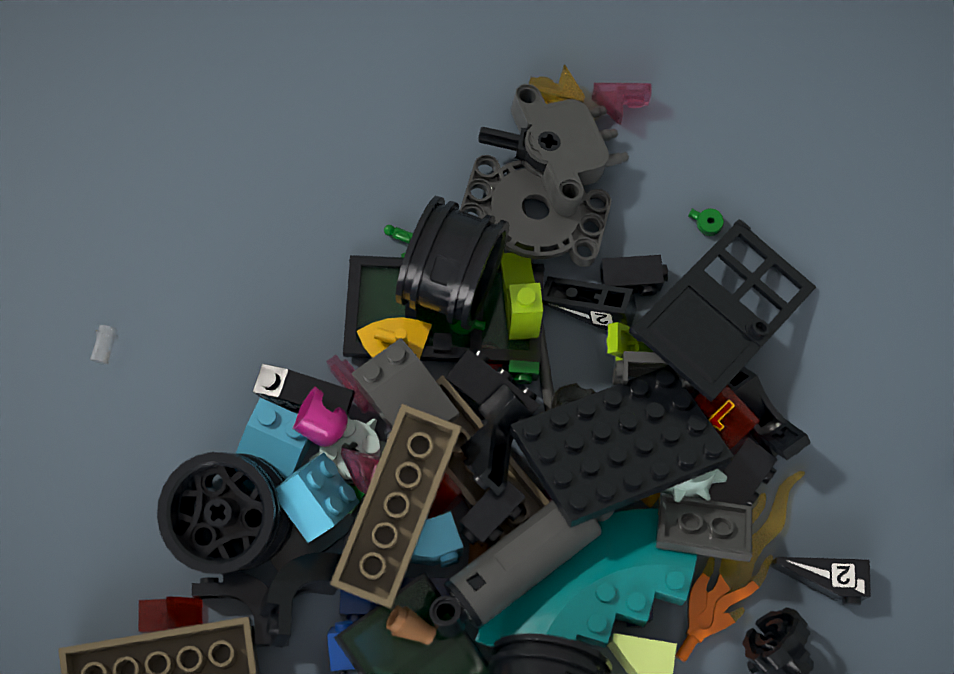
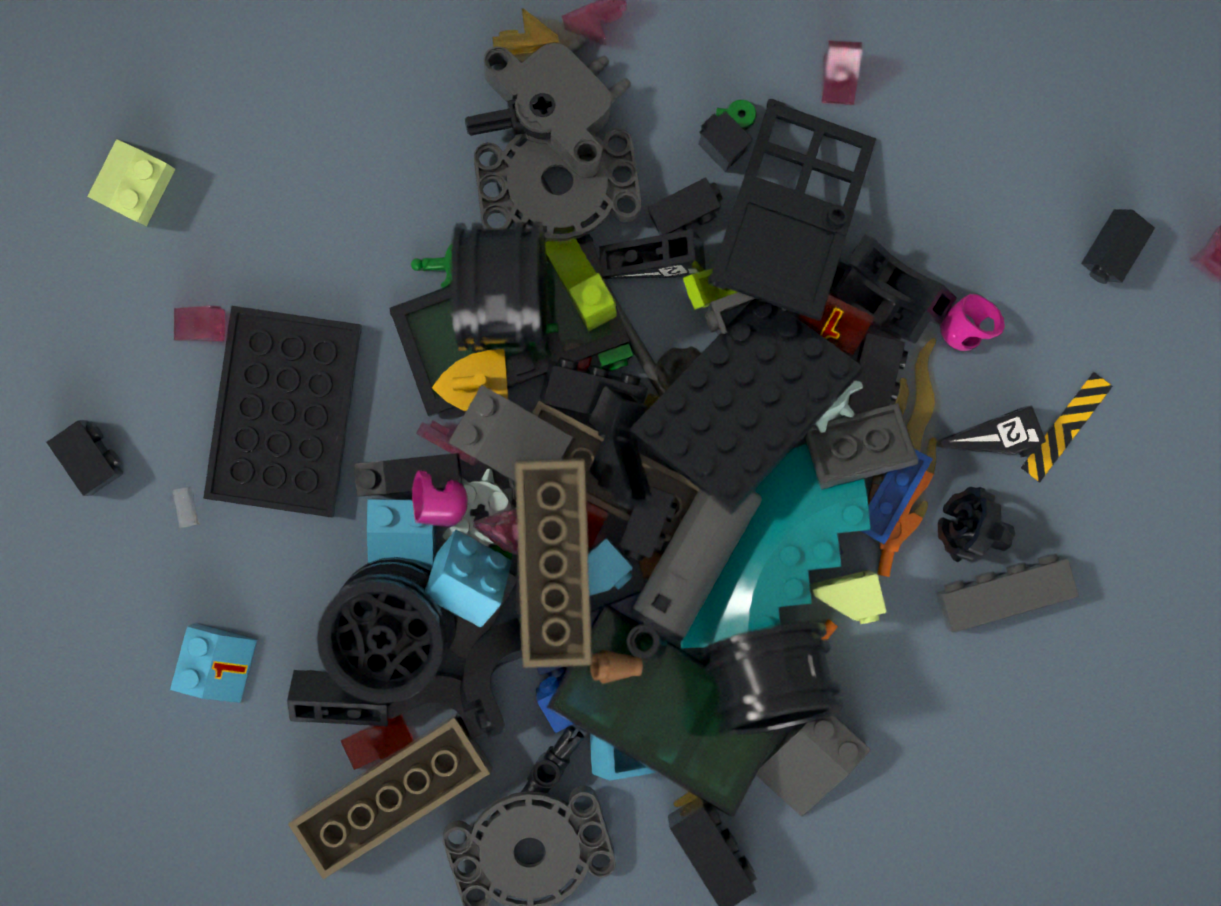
camera: 15 degrees left, 15 degrees up
(42, 269) = (86, 457): none -> black brick
(62, 485) = (213, 664): none -> medium azure slope
(147, 557) = (319, 699): none -> black slope
(188, 72) = (131, 182): none -> yellowish green slope
(189, 202) = (199, 323): none -> clear pink slope
(222, 301) = (282, 411): none -> black plate
(688, 232) = (724, 140): none -> black brick
(717, 588) = (893, 498): none -> blue plate
(791, 404) = (900, 280): none -> black arch
(807, 220) = (841, 72): none -> clear pink slope
(842, 462) = (961, 332): none -> dark pink helmet
(892, 597) = (1067, 426): none -> sticker

